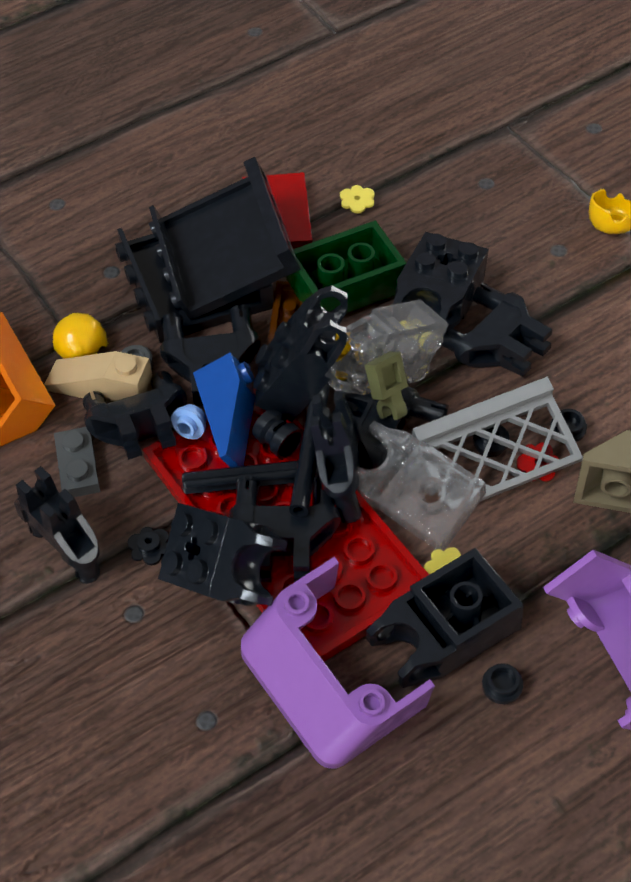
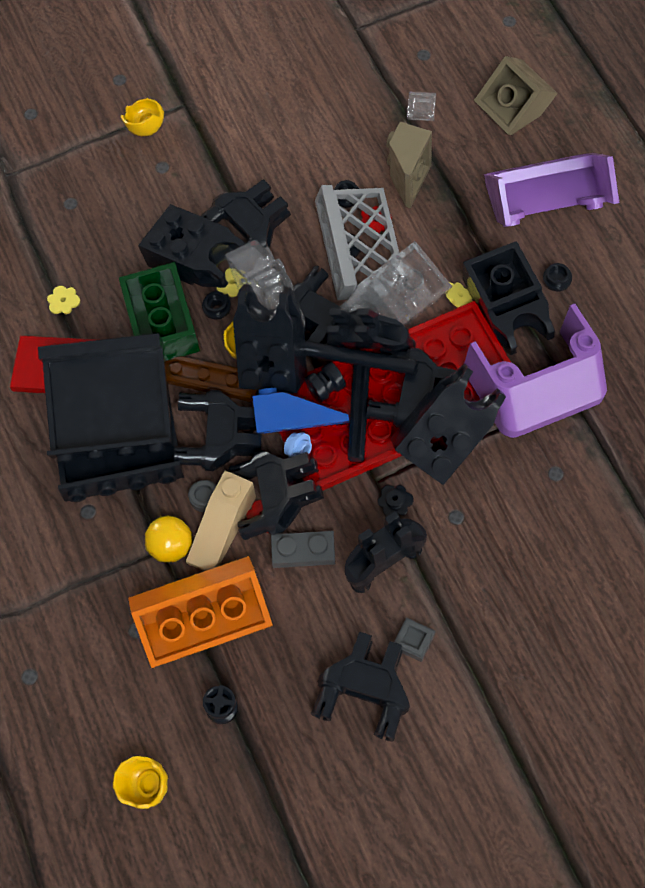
camera: 75 degrees left, 10 degrees up
(386, 381) = (306, 288): olive plate -> none

